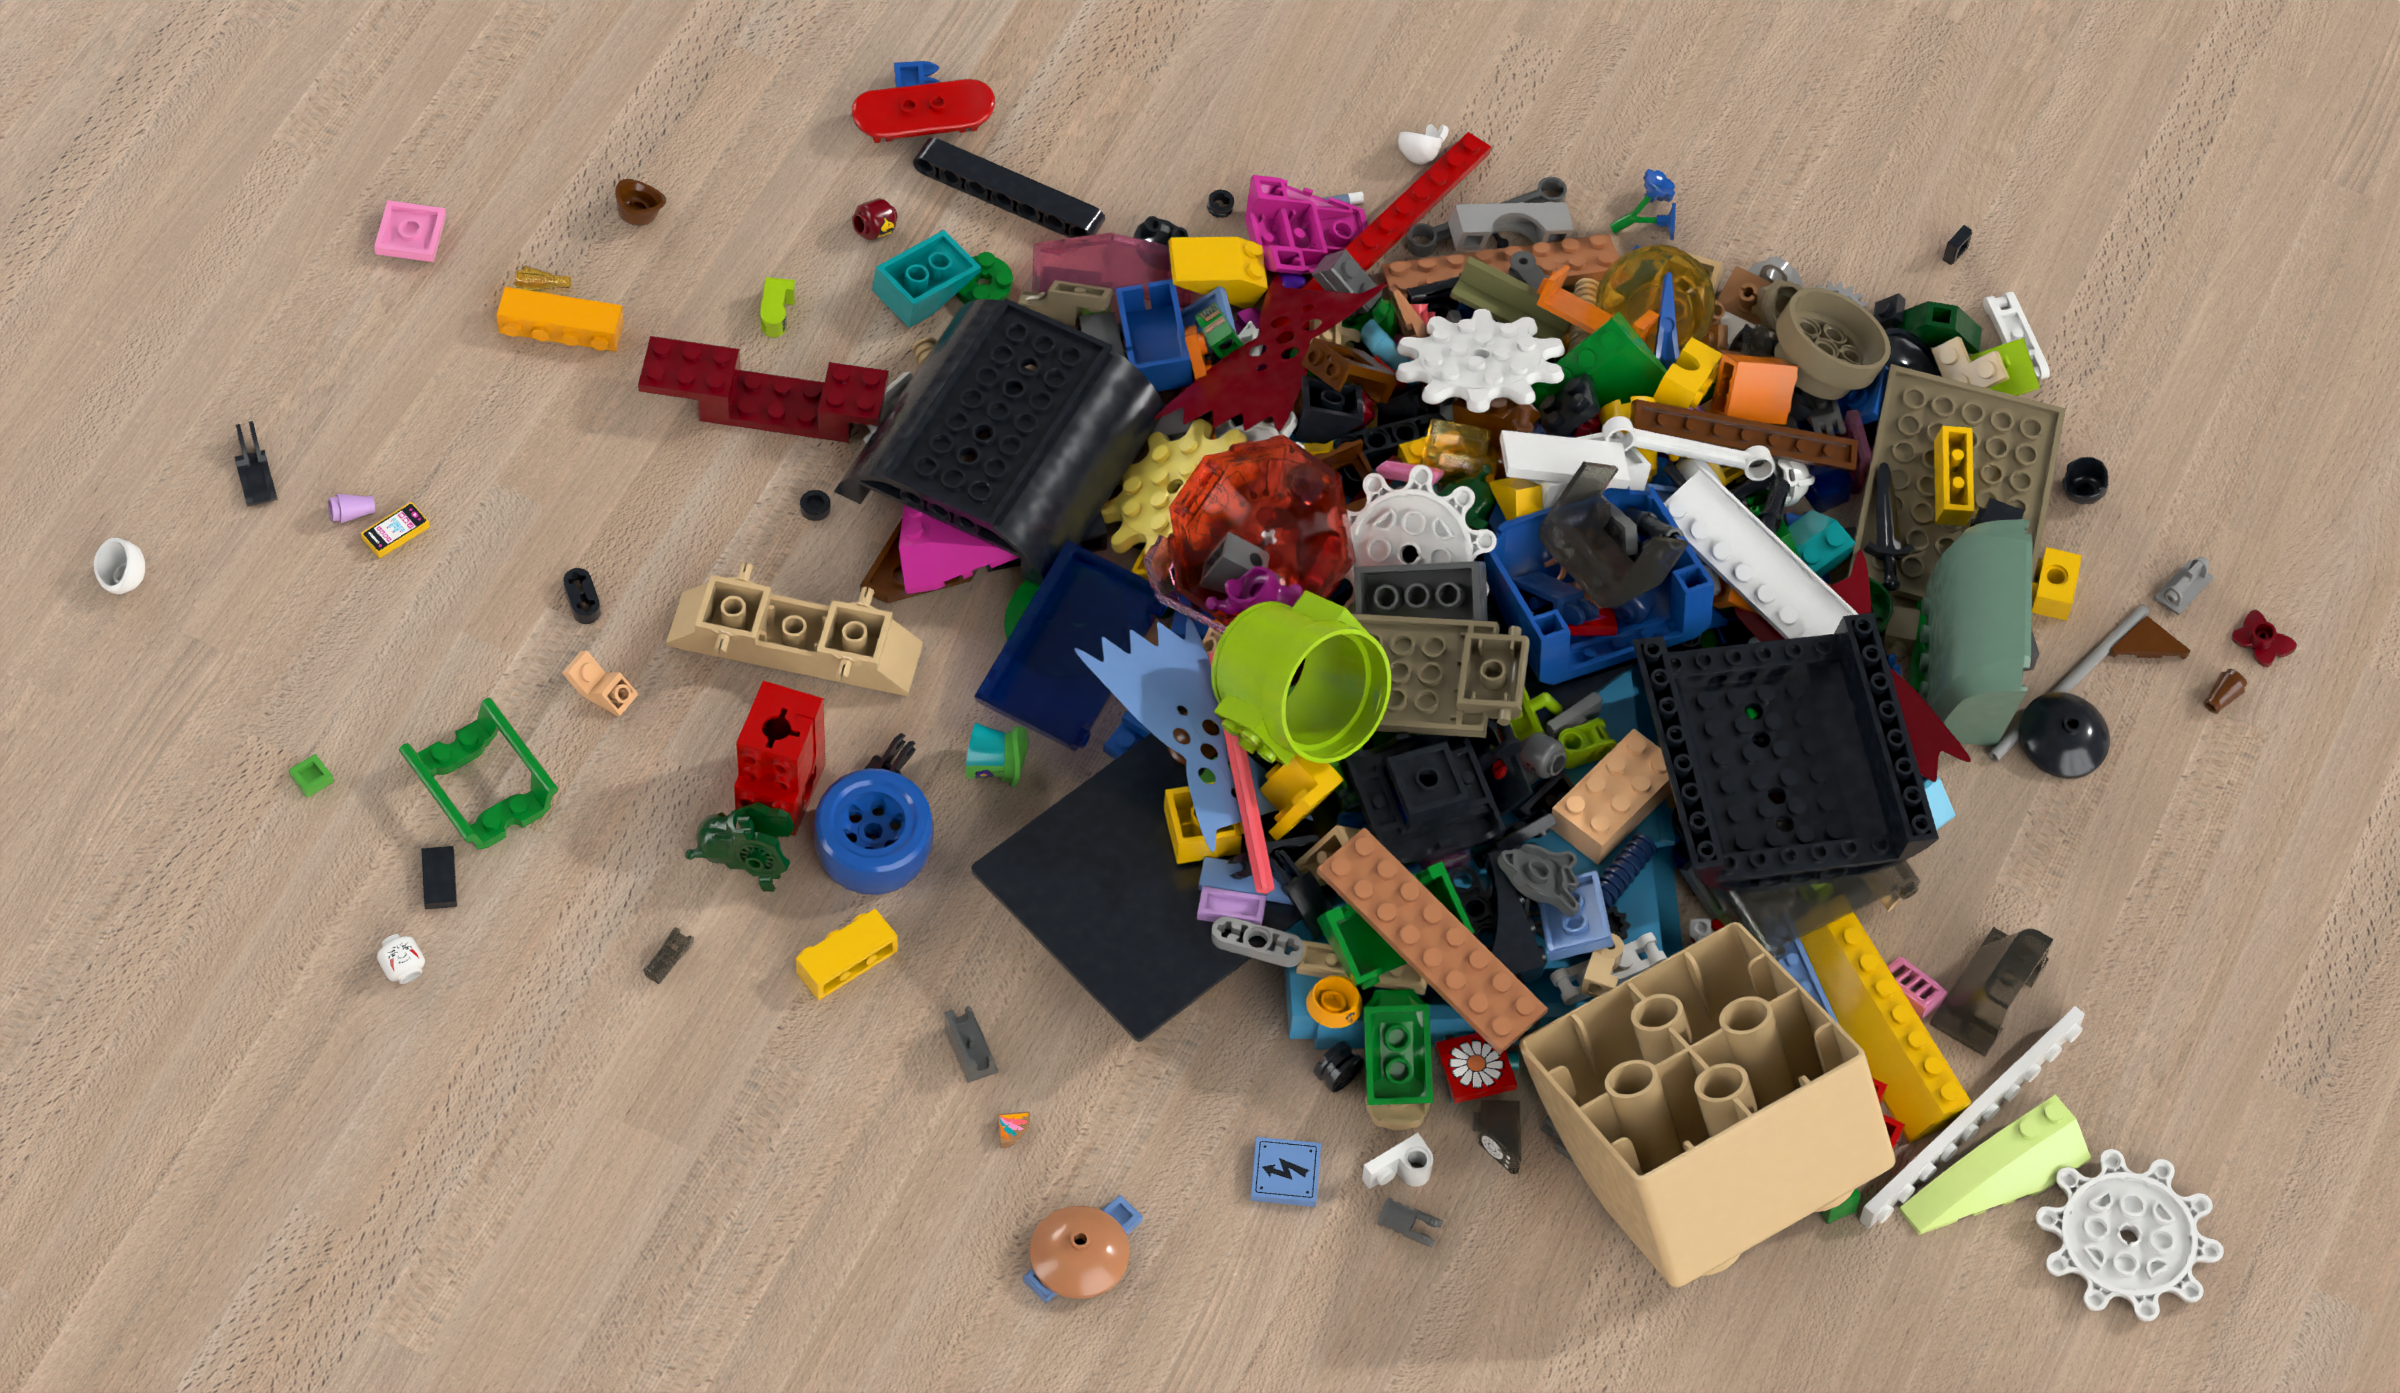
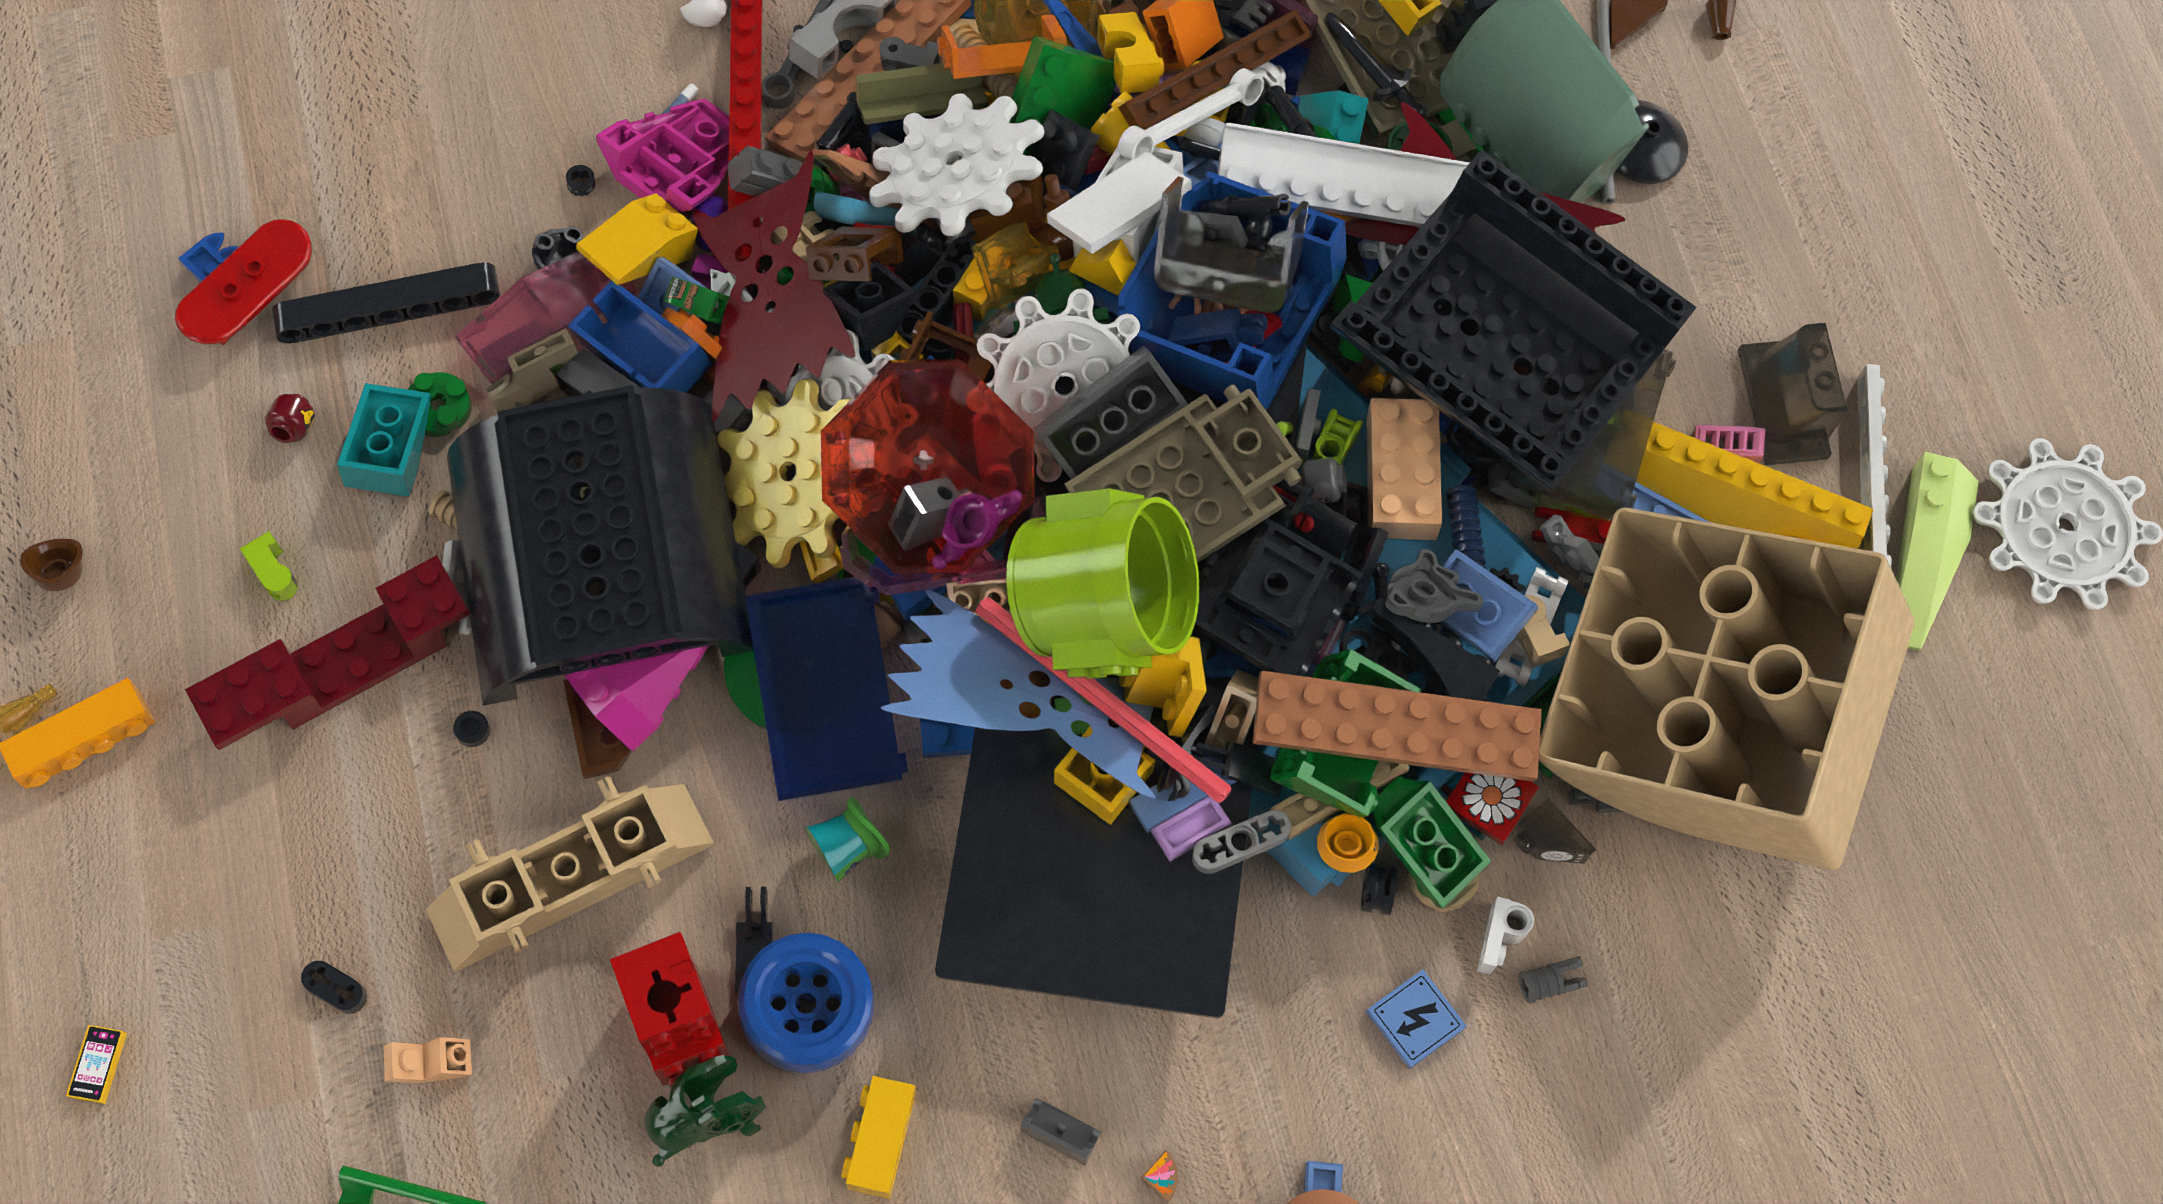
camera: 40 degrees left, 10 degrees up
(349, 507) = (32, 1079): lavender cone -> none
(1401, 471) = (989, 310): bright pink tile -> none

